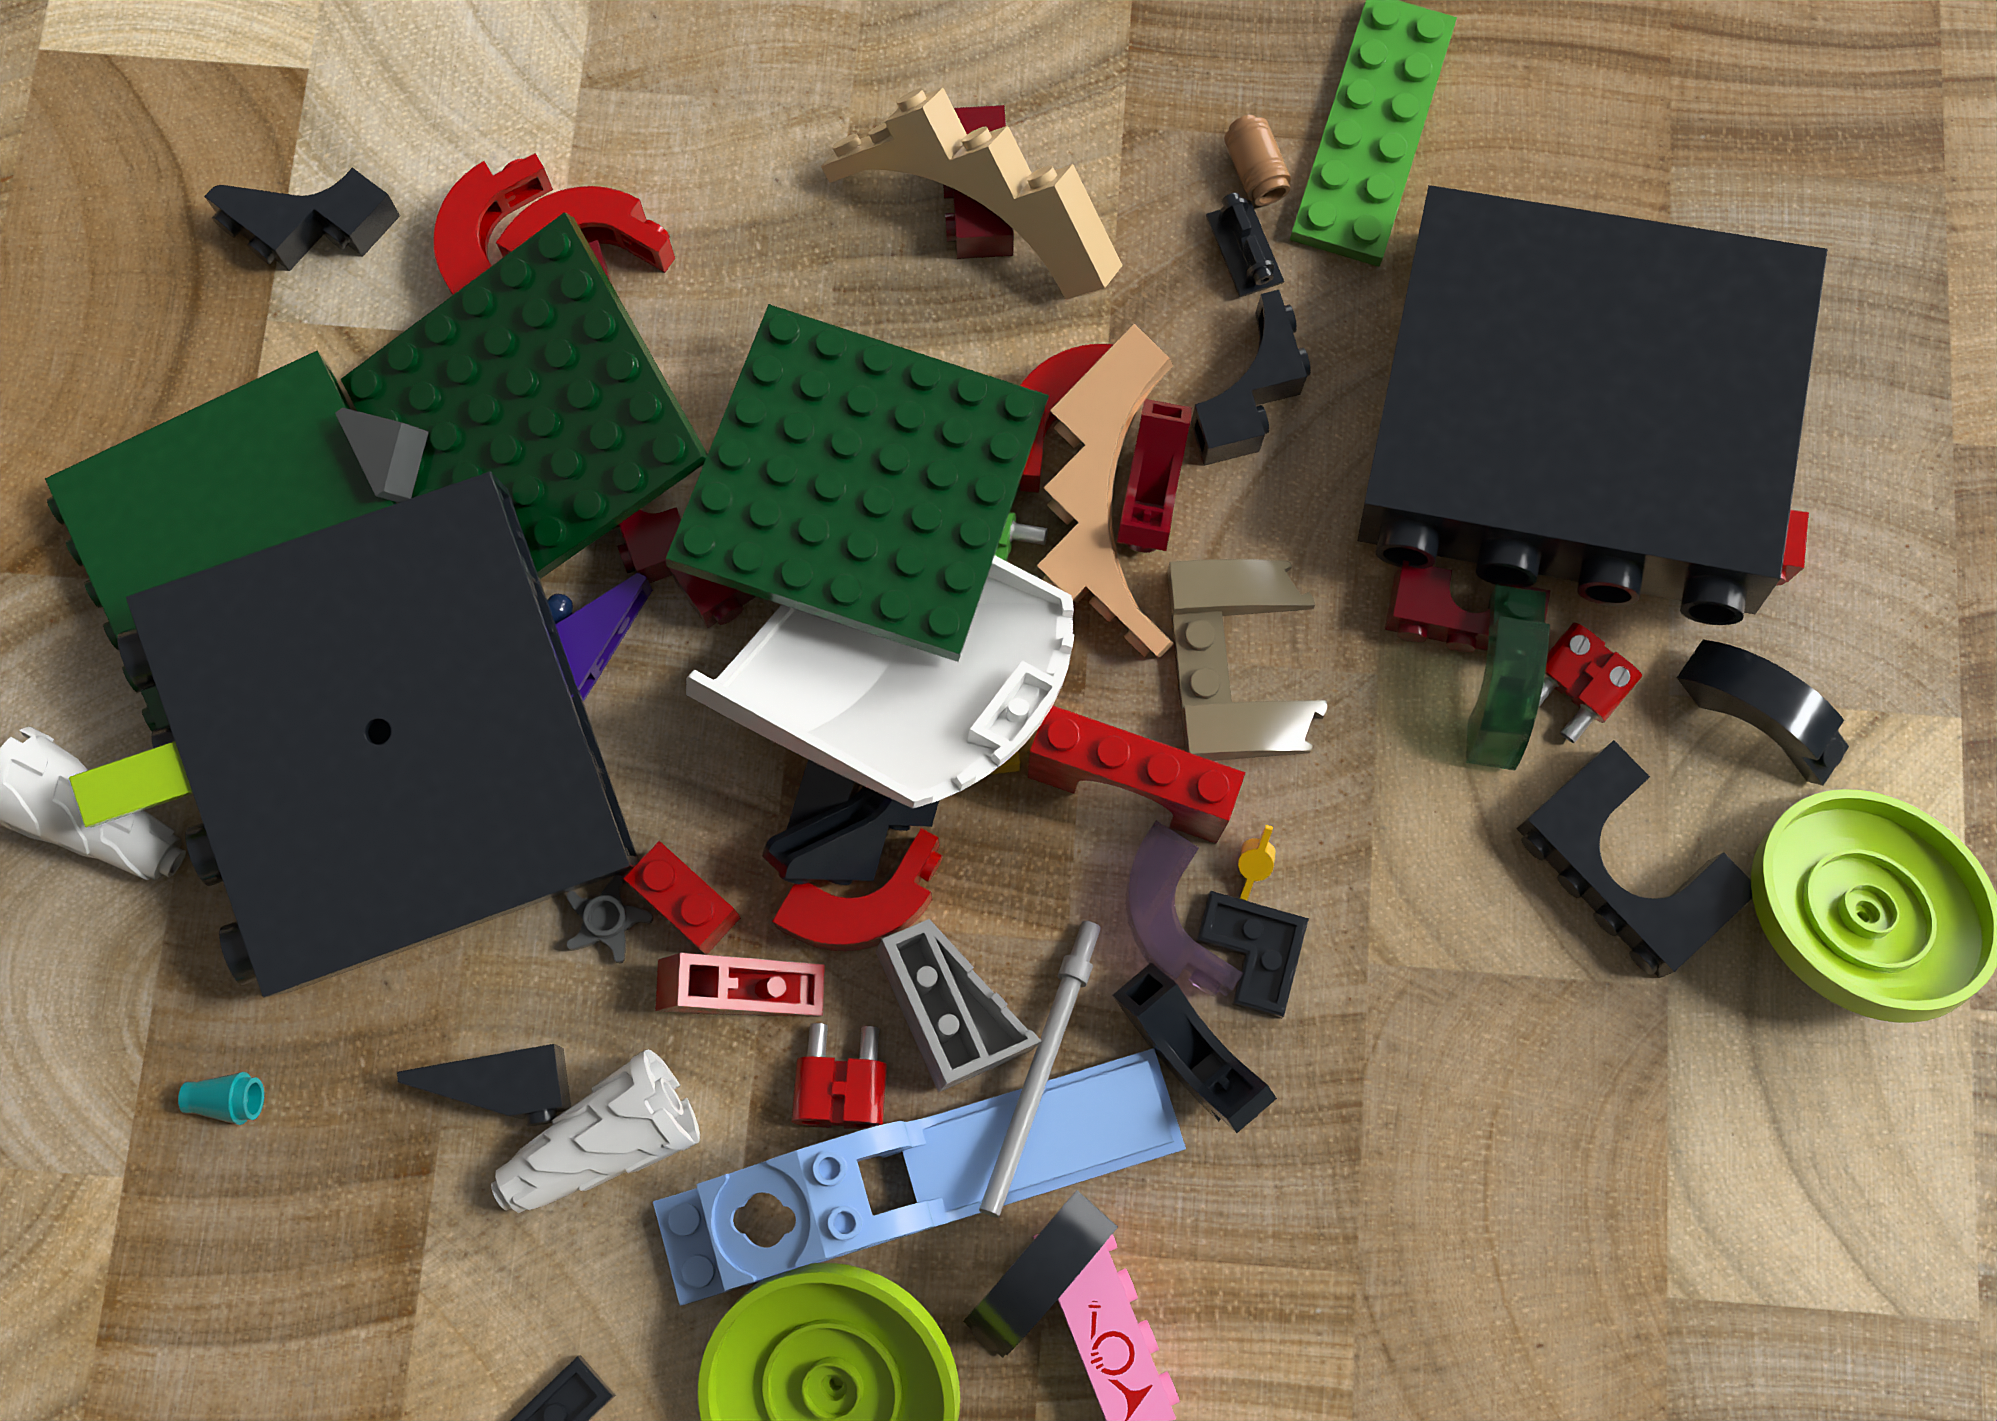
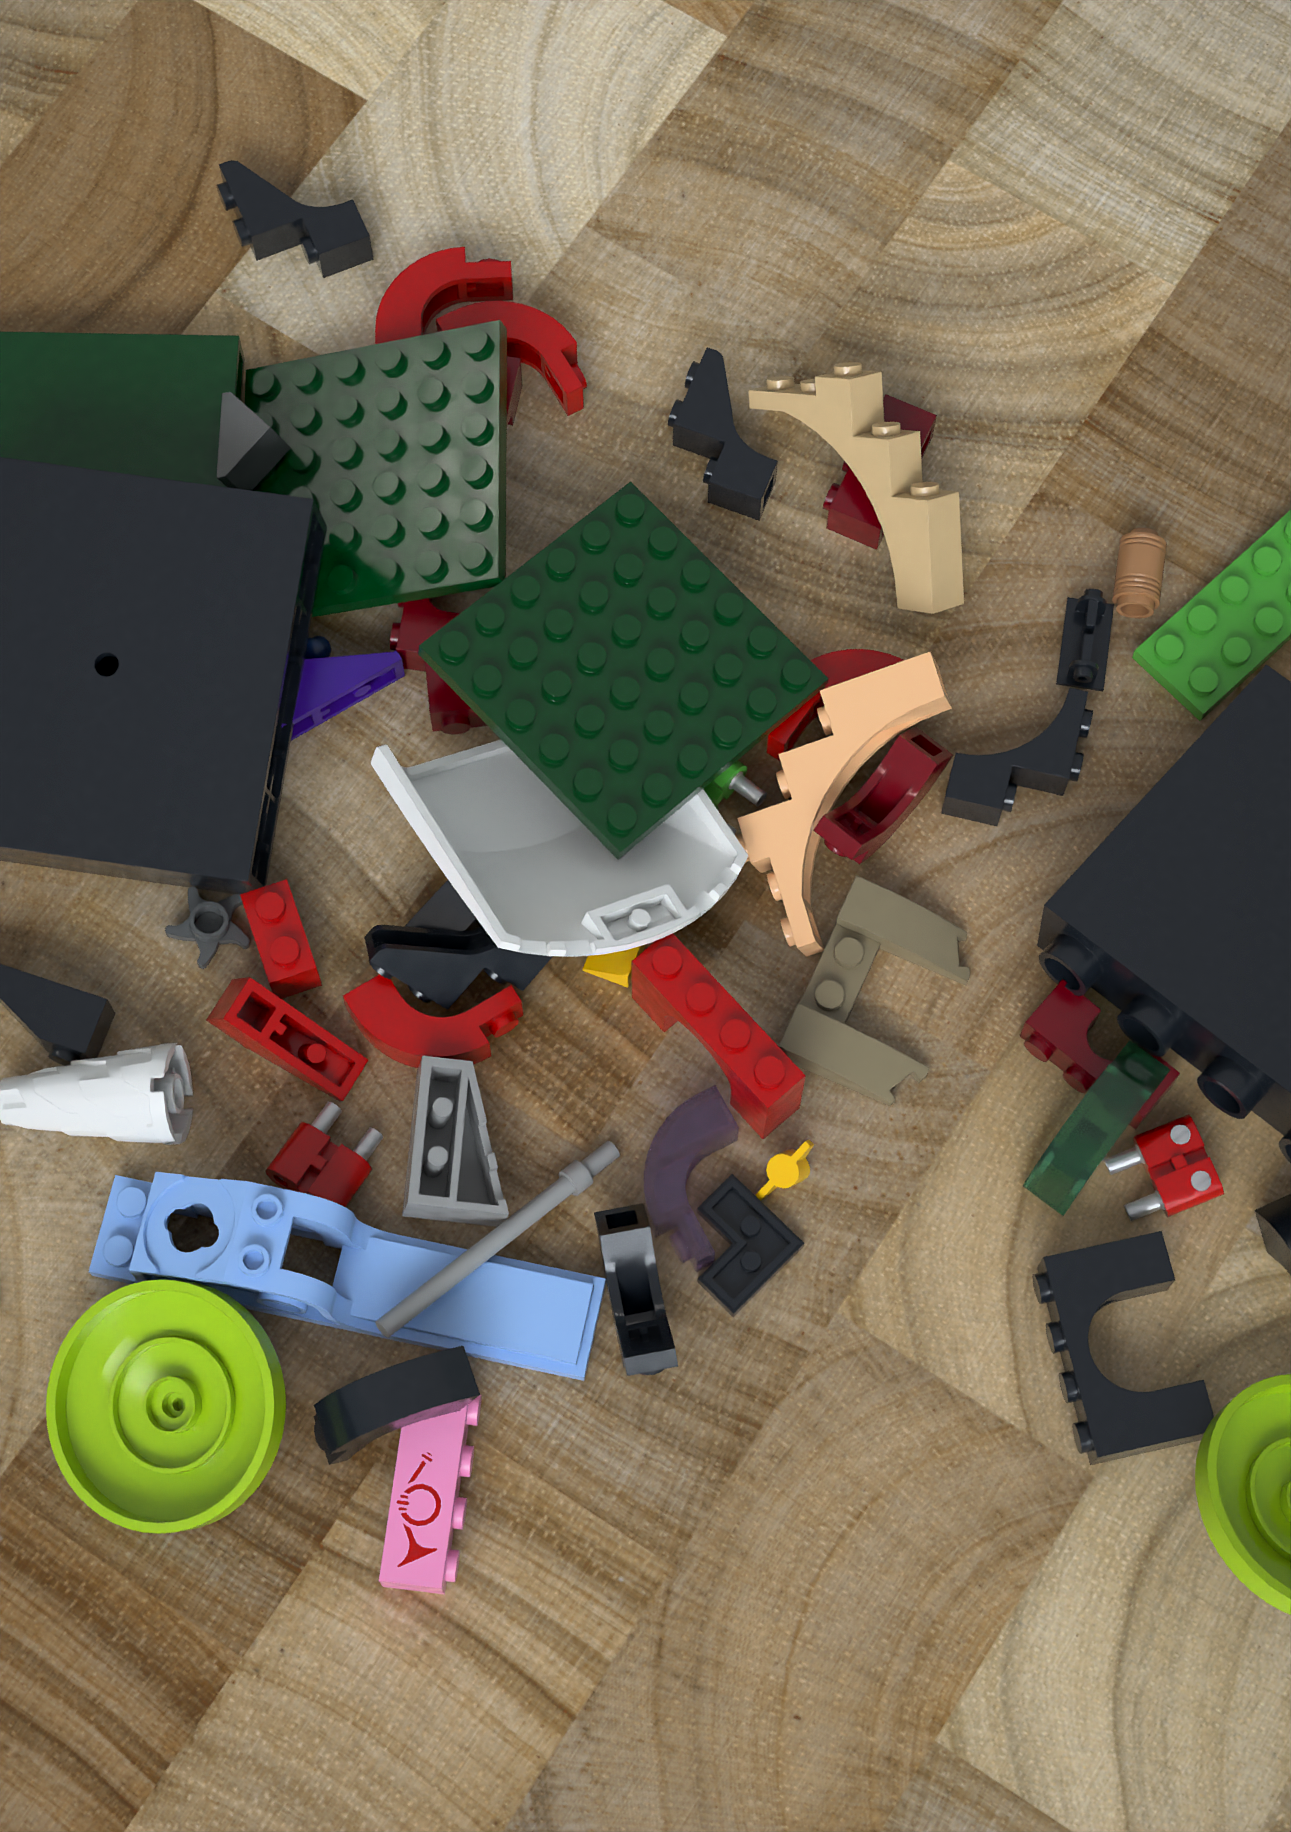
camera: 30 degrees right, 5 degrees down
(803, 220) = (704, 425): none -> black arch

